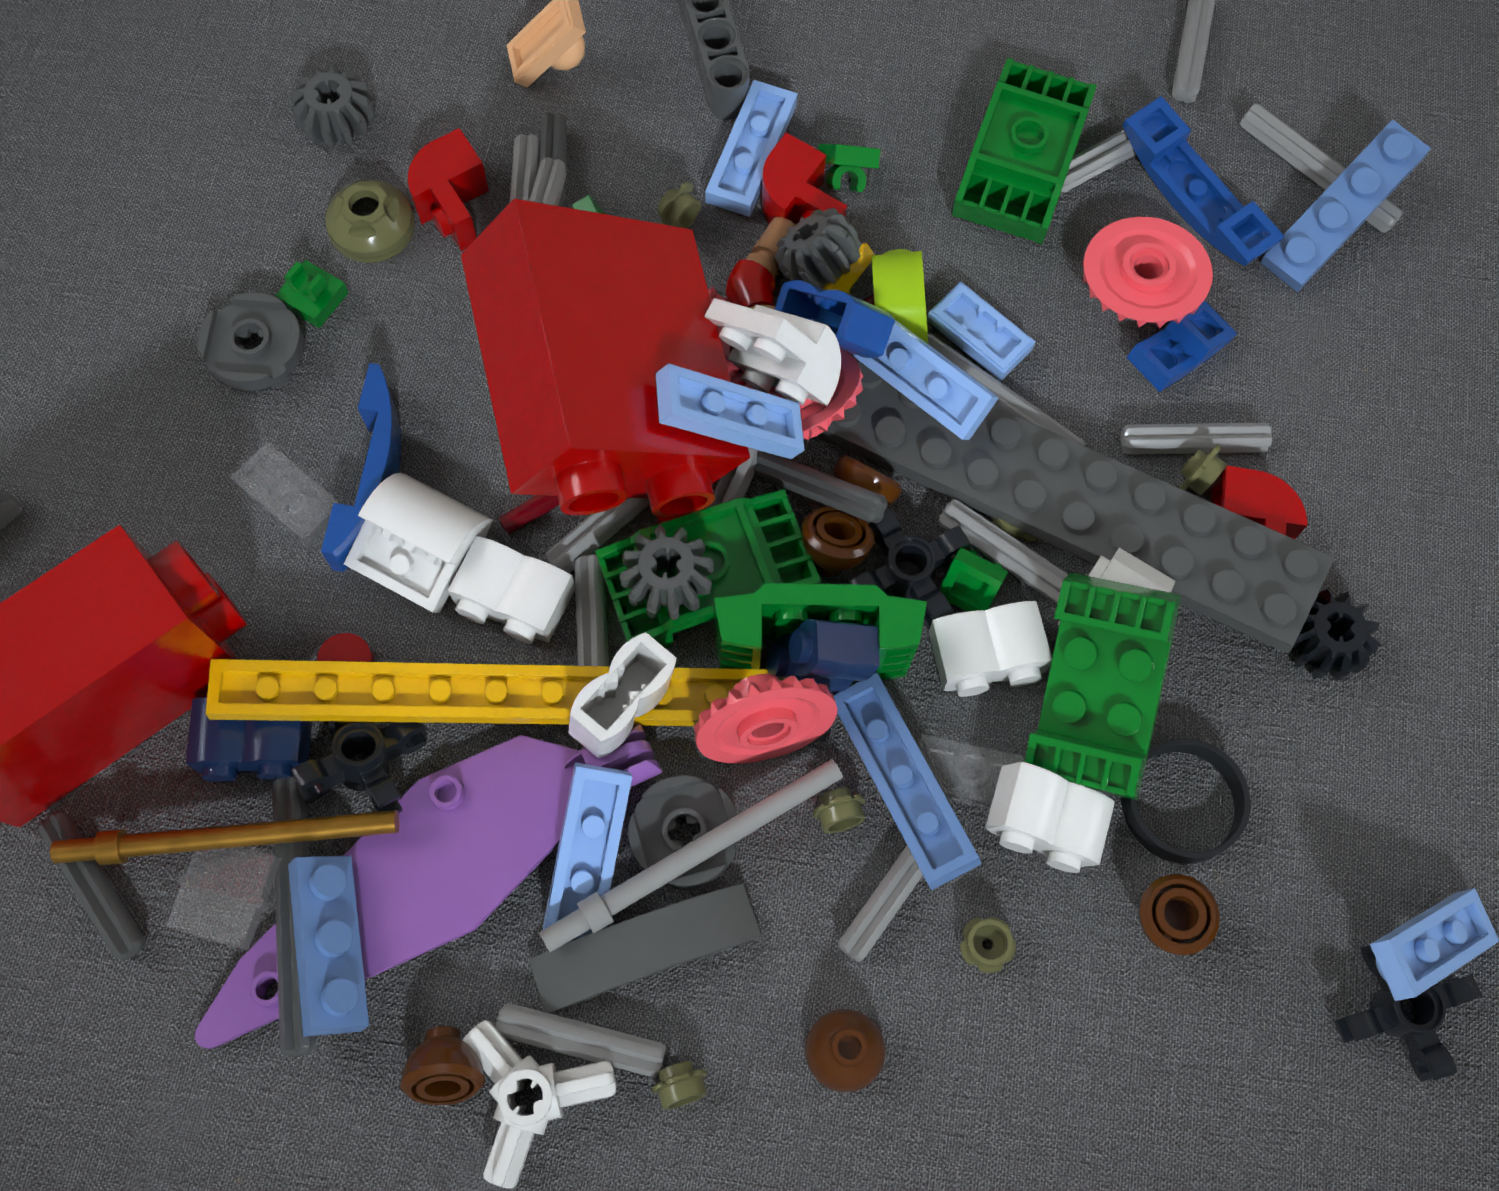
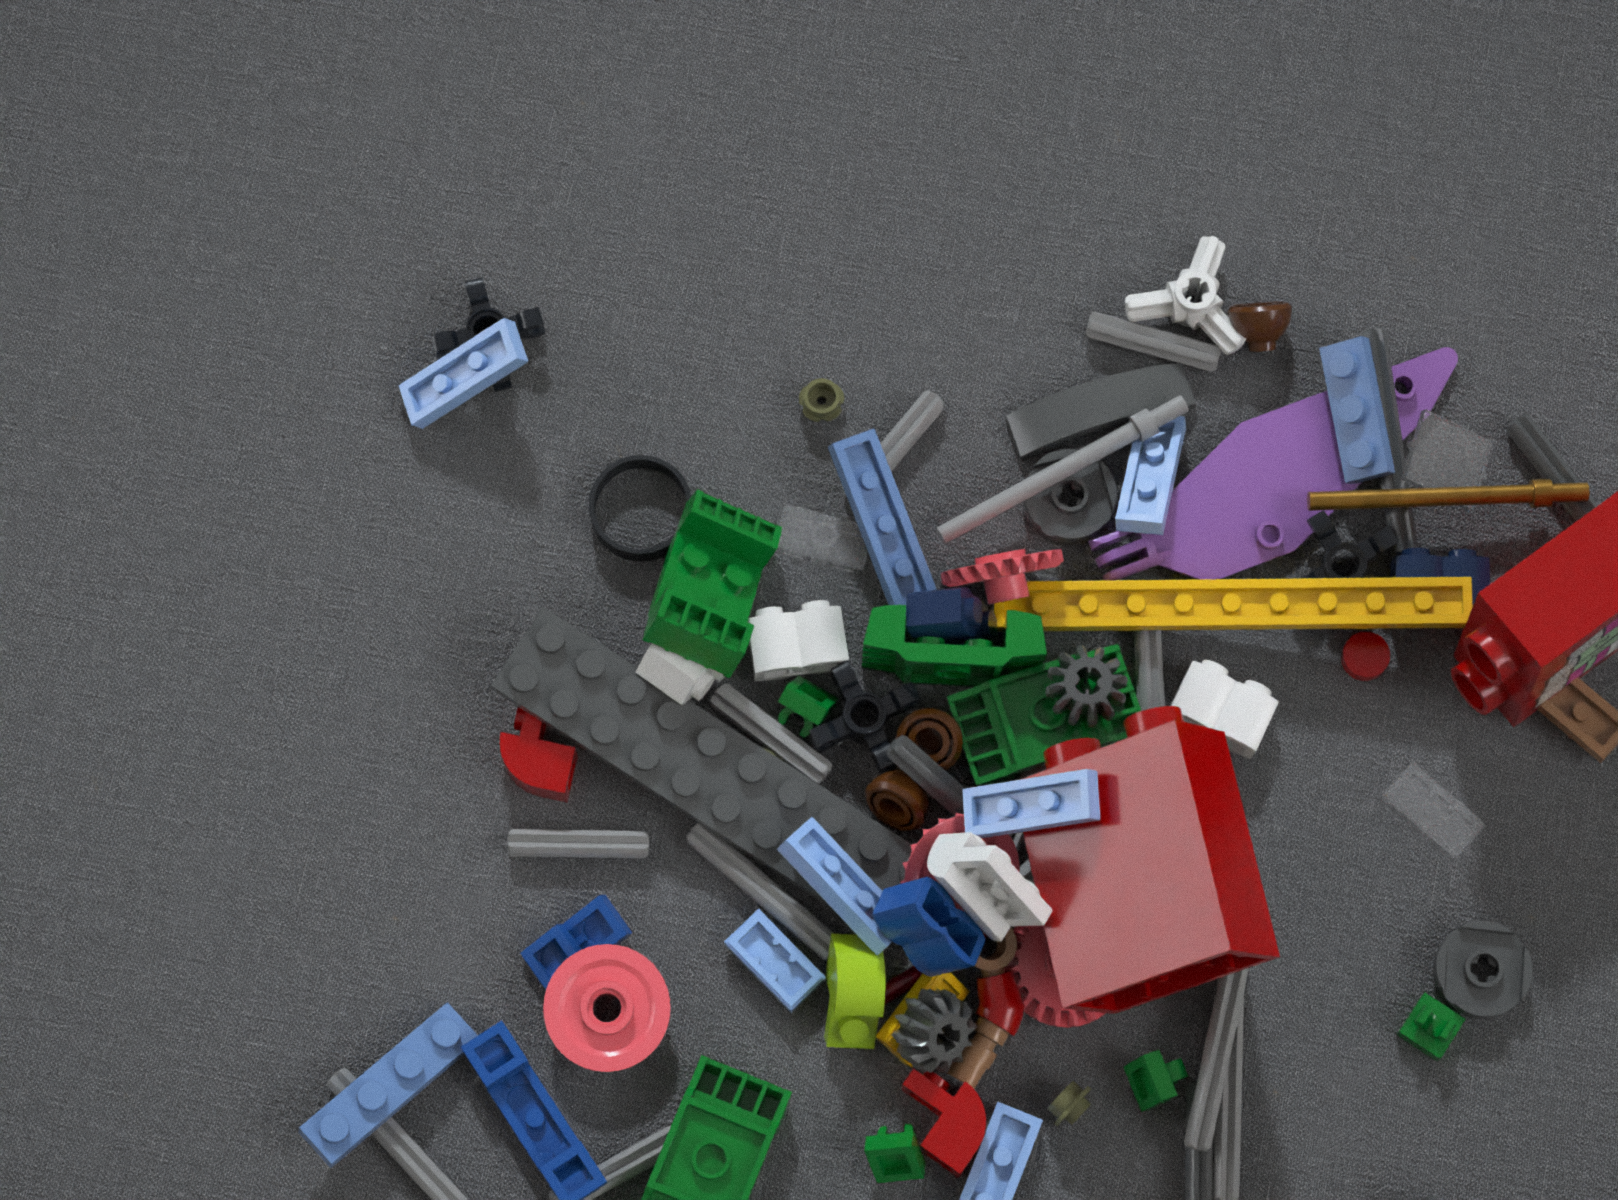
camera: 175 degrees left, 5 degrees up
(375, 235) = (1361, 1126): olive piece -> none
(382, 460) = (1353, 887): blue slope -> none
(414, 539) = (1308, 757): white brick -> none
(442, 180) = (1313, 1142): red brick -> none
(611, 702) = (1135, 571): white brick -> none
(680, 1085) = (1074, 304): olive plate -> none
(840, 810) = (937, 508): olive plate -> none
(845, 1050) = (941, 328): reddish brown brick -> none
(1049, 815) = (766, 487): white brick -> none
(1179, 914) = (667, 406): reddish brown brick -> none
(1202, 470) = (581, 803): olive plate -> none
(1351, 632) = (471, 645): black gear -> none

